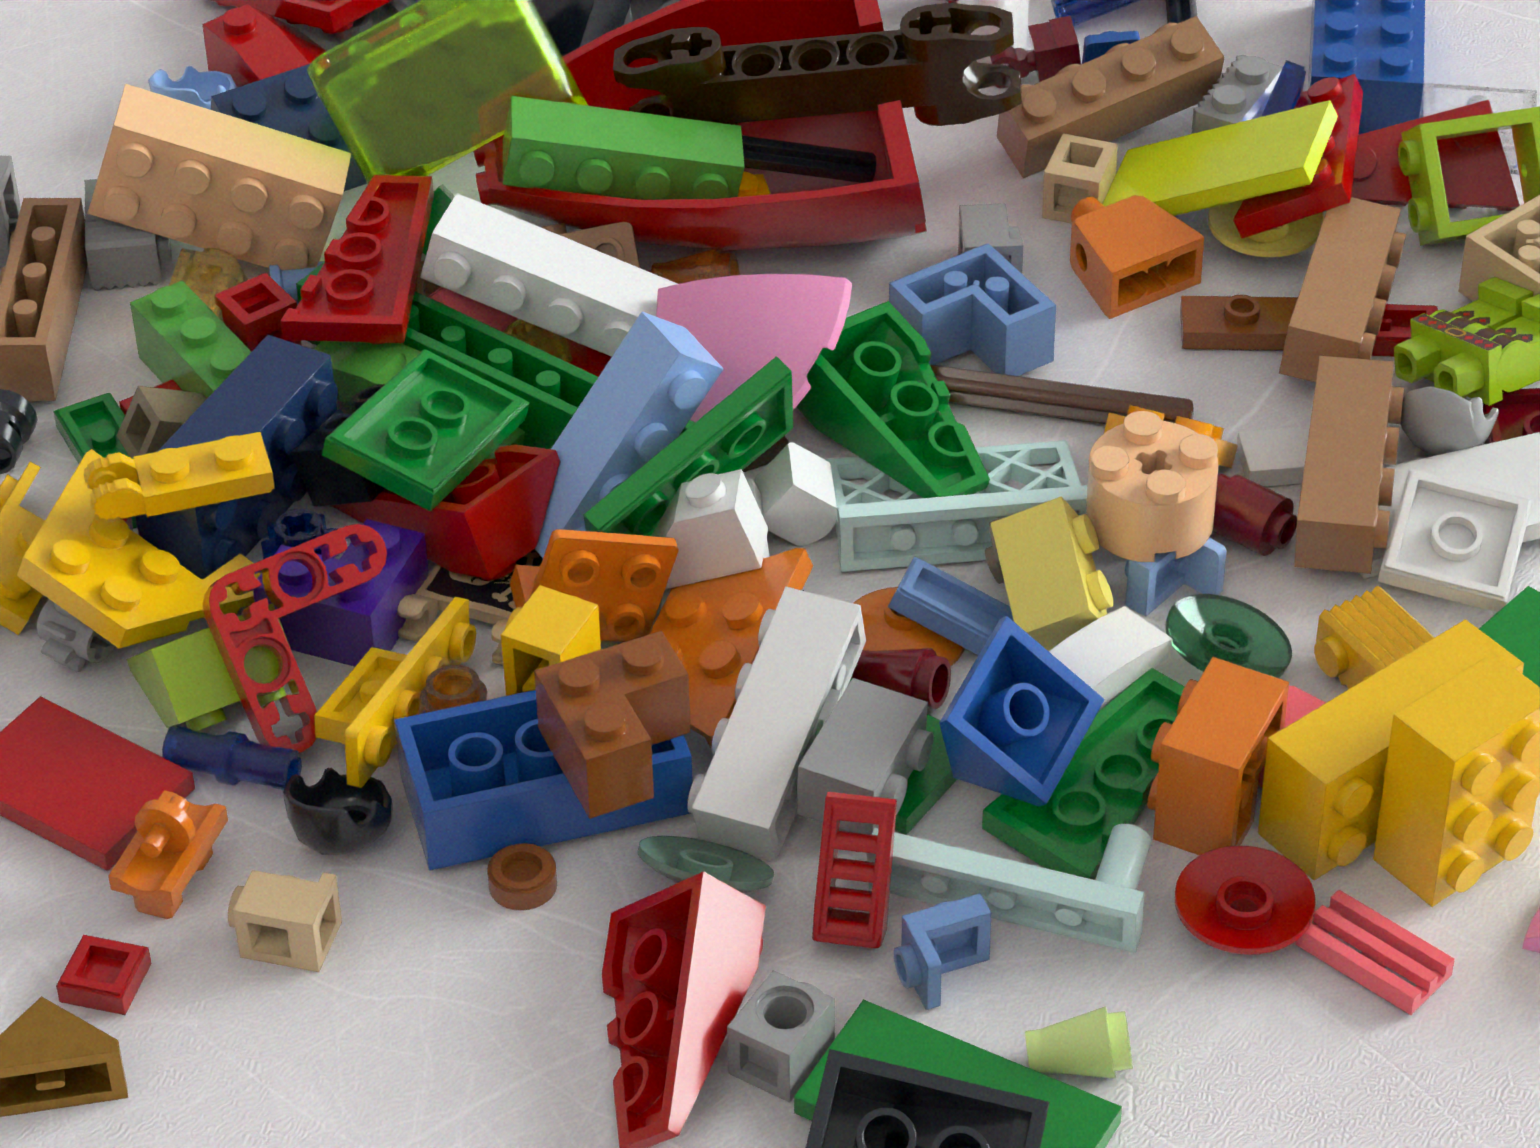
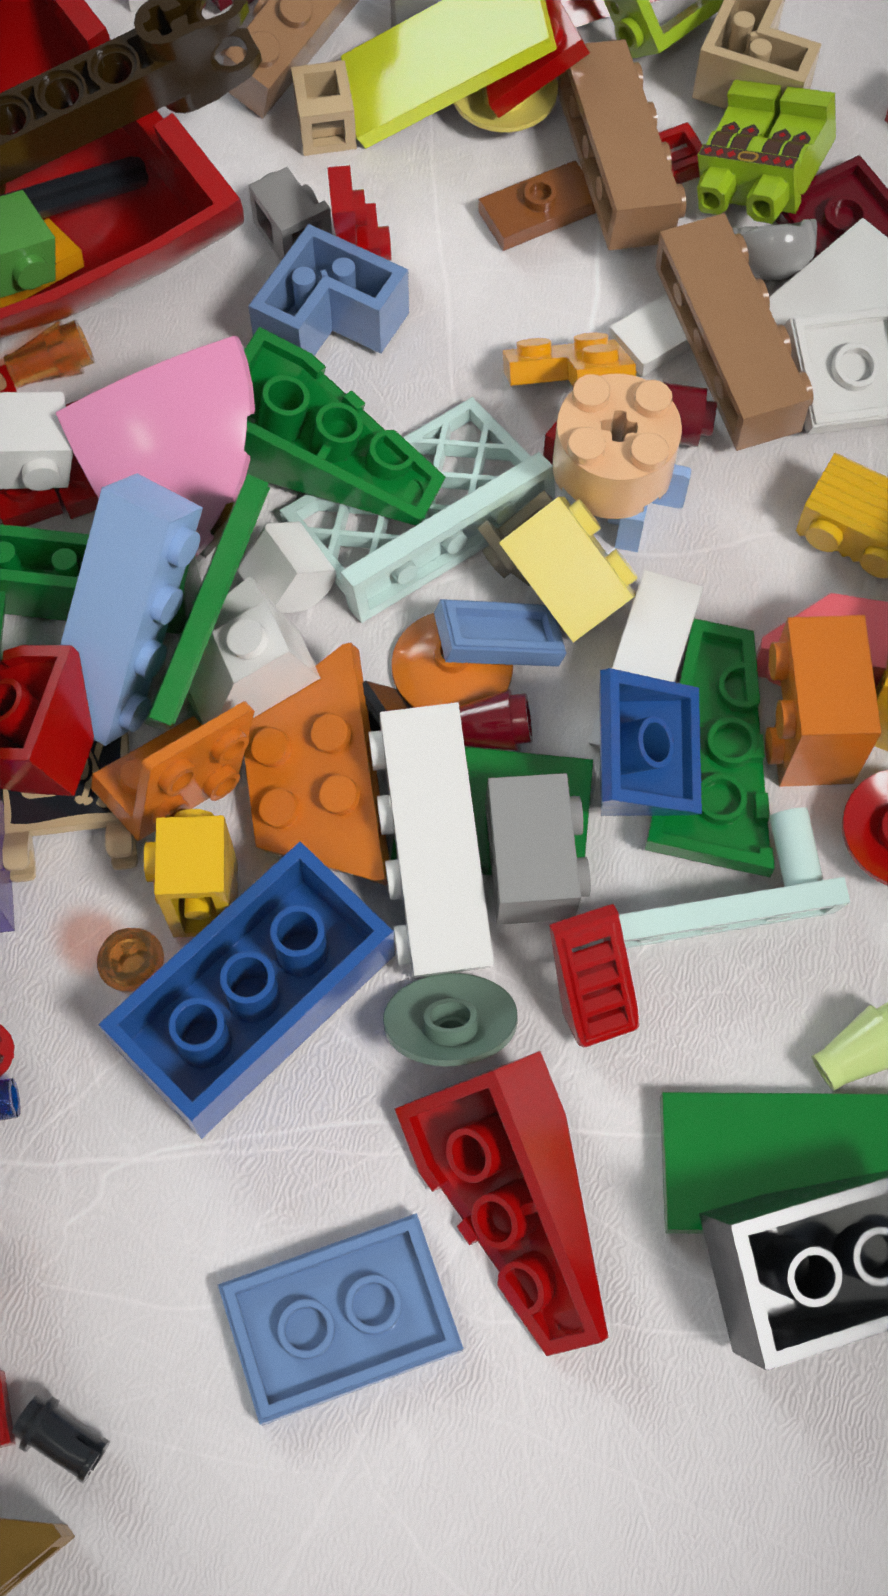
camera: 30 degrees left, 25 degrees up
(158, 1002) = (59, 1437): none -> black pin
(286, 919) = (109, 1273): tan brick -> none
(335, 815) = (86, 1125): black hair -> none
(389, 688) = (51, 976): yellow bracket -> none
(457, 1043) = (339, 1319): none -> medium blue tile
(522, 876) = (287, 1102): dark orange tile -> none
(606, 715) = (300, 946): dark orange brick -> none
(780, 1035) = (616, 1199): light grey brick -> none
(942, 941) = (691, 989): medium blue bracket -> none
(1030, 252) = (353, 218): none -> red slope
(1052, 397) = (441, 352): reddish brown axle -> none
(1132, 253) = (412, 169): orange torso -> none
(1227, 630) = (736, 558): clear green dish -> none

